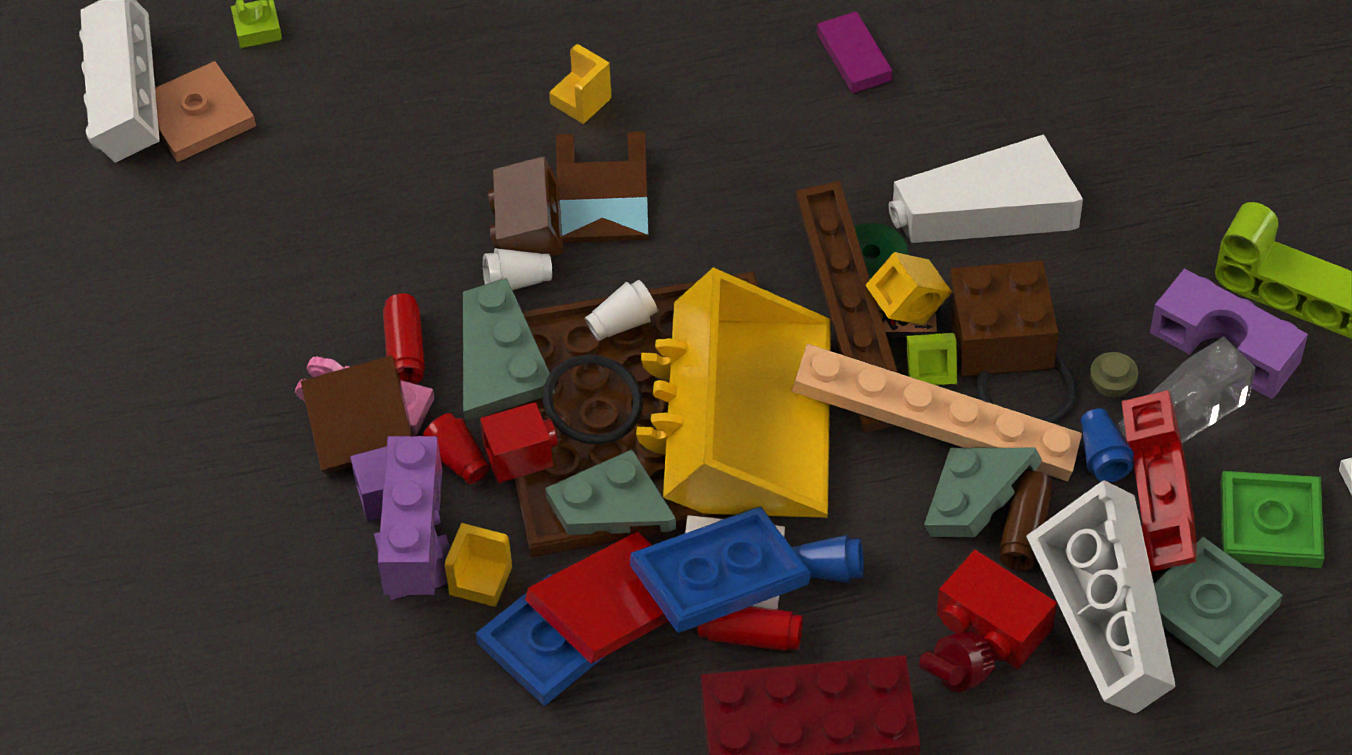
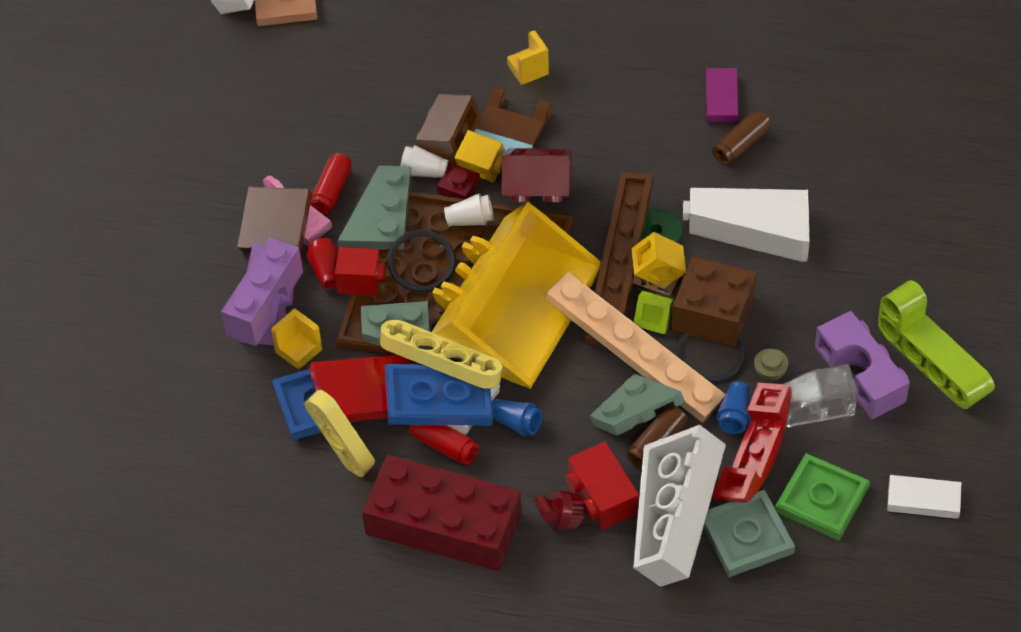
camera: 25 degrees right, 0 degrees up
(575, 279) = (458, 182): none -> dark red plate
(593, 233) = (481, 155): none -> yellow brick
(620, 669) = (339, 433): none -> light yellow beam
(625, 512) = (475, 368): none -> light yellow beam
(700, 227) = (537, 173): none -> dark red brick
(912, 97) = (741, 137): none -> reddish brown piece

